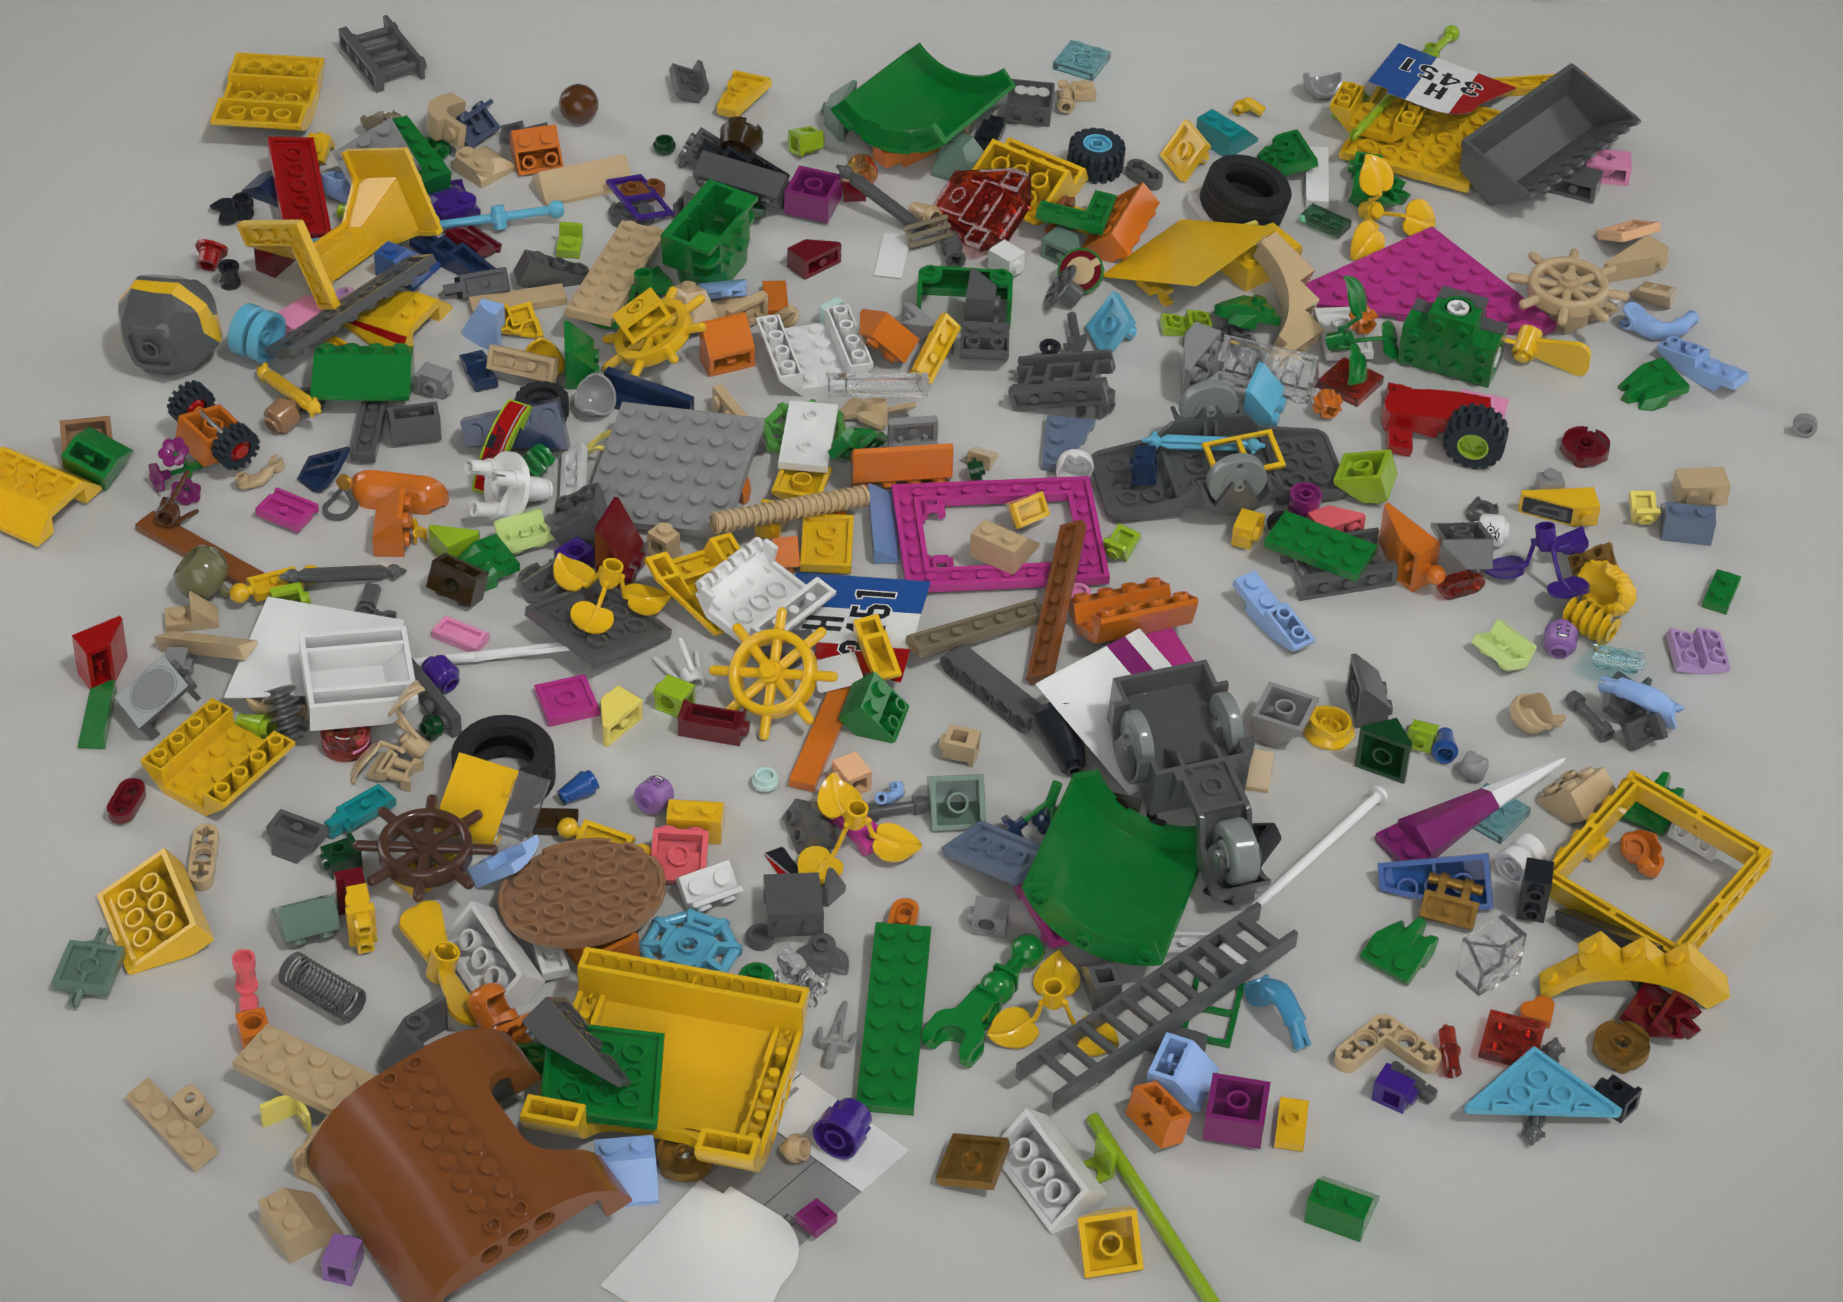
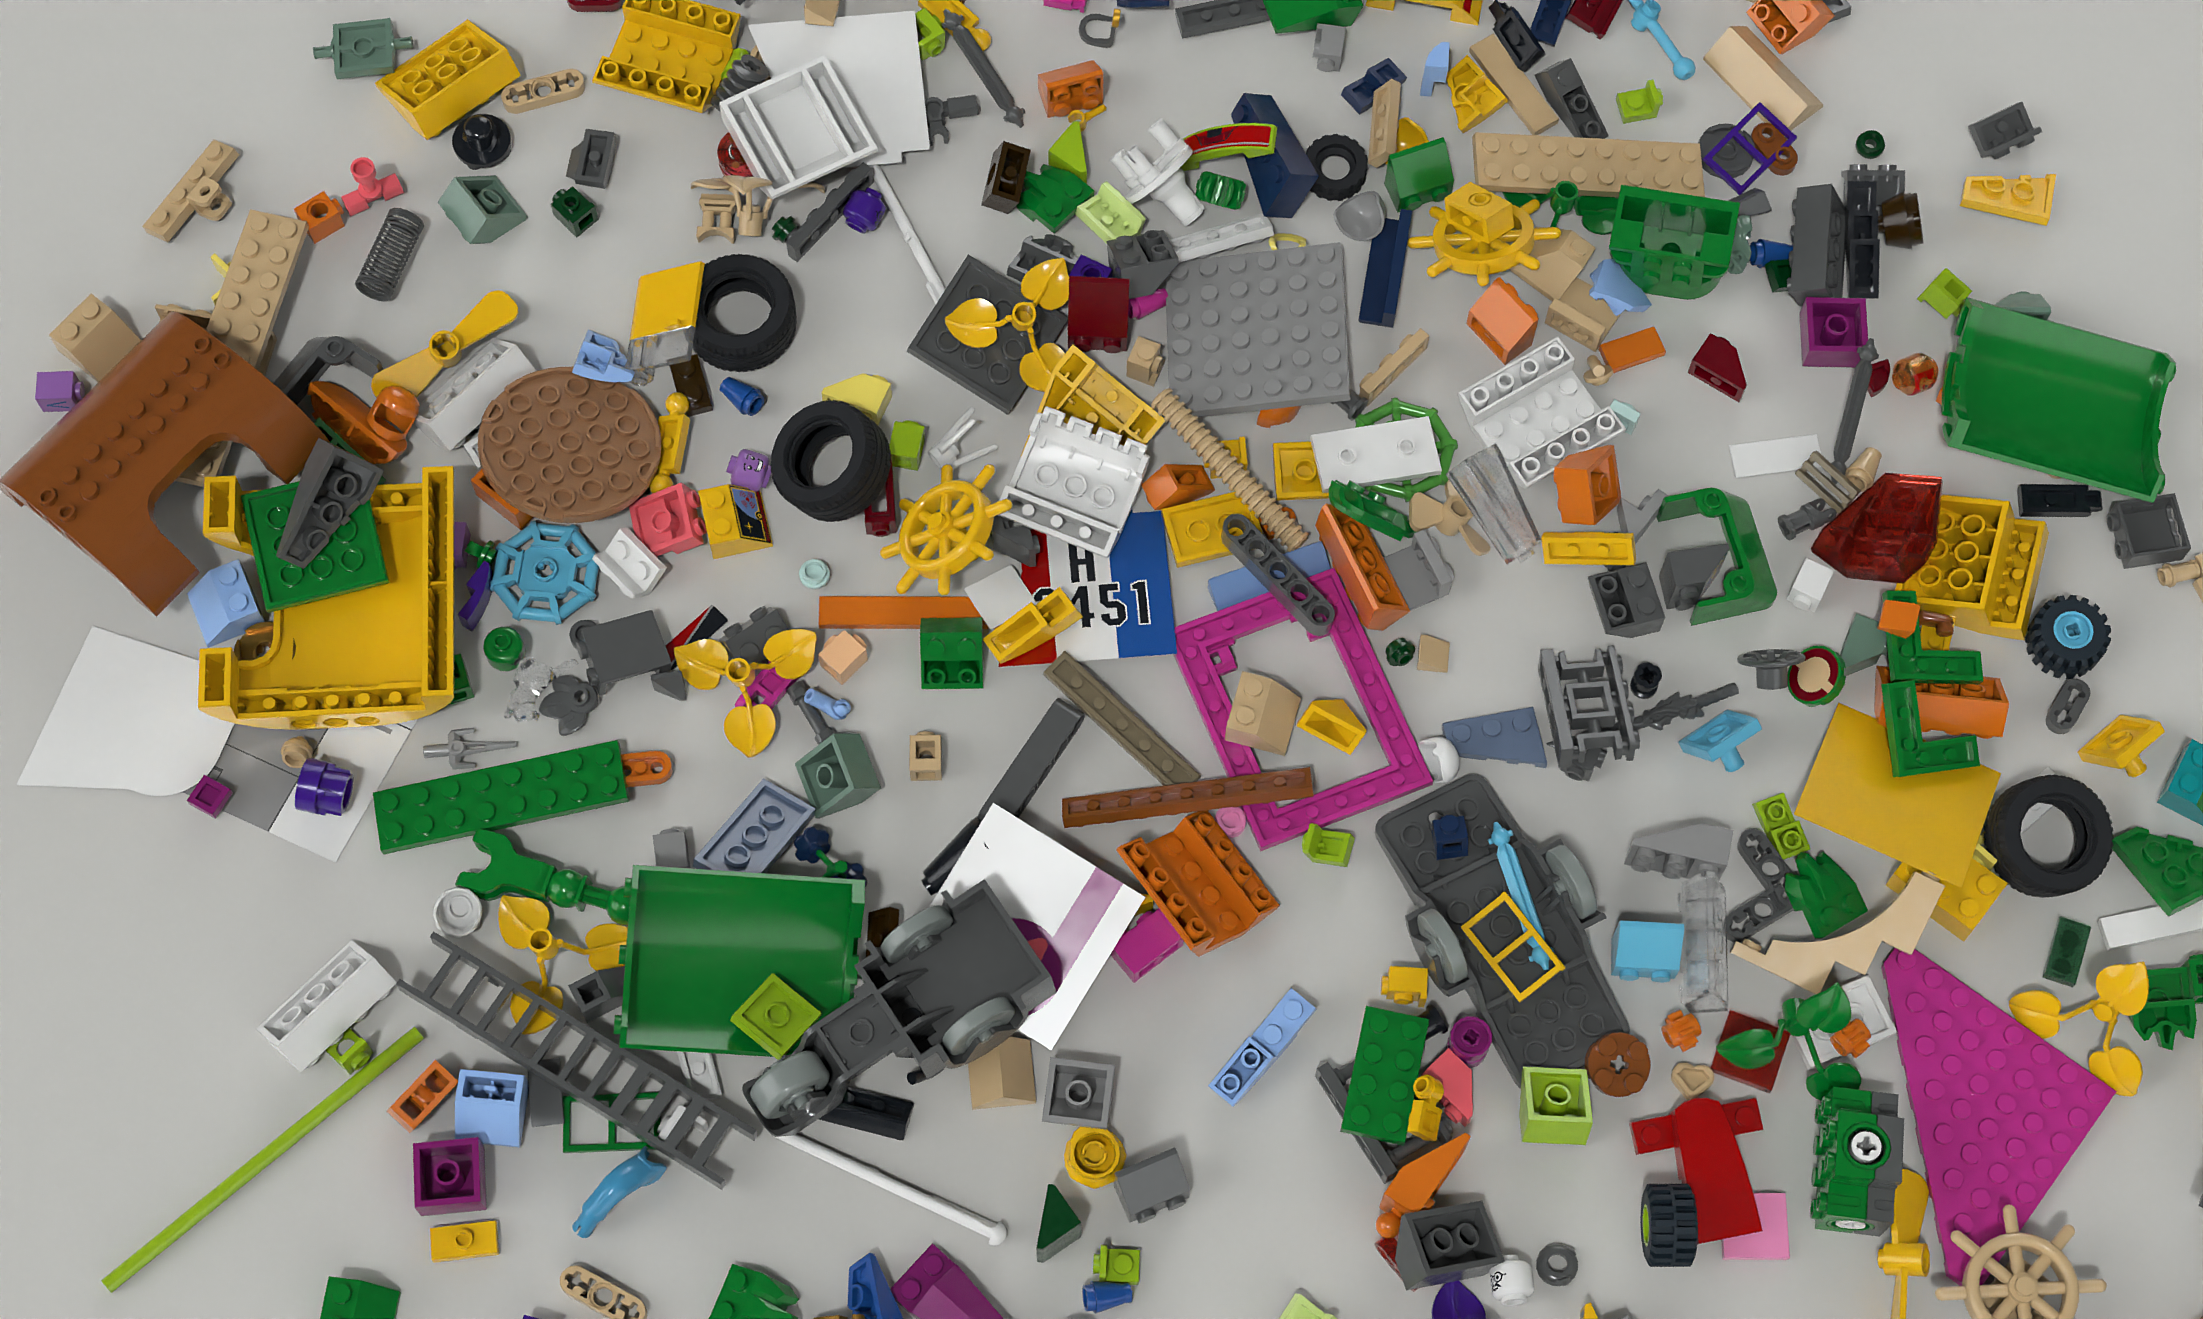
camera: 75 degrees right, 25 degrees up
(232, 906) = (481, 141): none -> black plate
(354, 901) = (490, 249): yellow hips -> none
(359, 810) = (646, 205): teal hinge -> none
(374, 485) = (1132, 78): orange brick -> none
(414, 423) = (1252, 49): dark grey slope -> none
(427, 857) = (574, 281): reddish brown brick -> none
(460, 635) = (940, 211): bright pink tile -> none
(566, 700) = (875, 343): dark pink tile -> none
(578, 103) = (1894, 27): reddish brown piece -> none
(679, 690) = (805, 436): none -> black tyre
(891, 505) = (1279, 588): none -> dark grey beam
(956, 155) = (1987, 478): sand green slope -> none
(973, 1161) = (318, 926): pearl gold plate -> none
(993, 1063) = (457, 912): none -> white hair
(1062, 206) = (1899, 618): none -> orange slope
(1110, 1241) = (246, 1088): yellow slope -> none
(1161, 234) = (1906, 745): none -> green plate
(1163, 869) = (775, 1016): none -> lime plate
(1342, 438) = (1636, 1060): none -> dark orange plate
(1361, 529) = (1425, 1116): none -> yellow plate
(1363, 414) = (1692, 1080): none -> tan tile

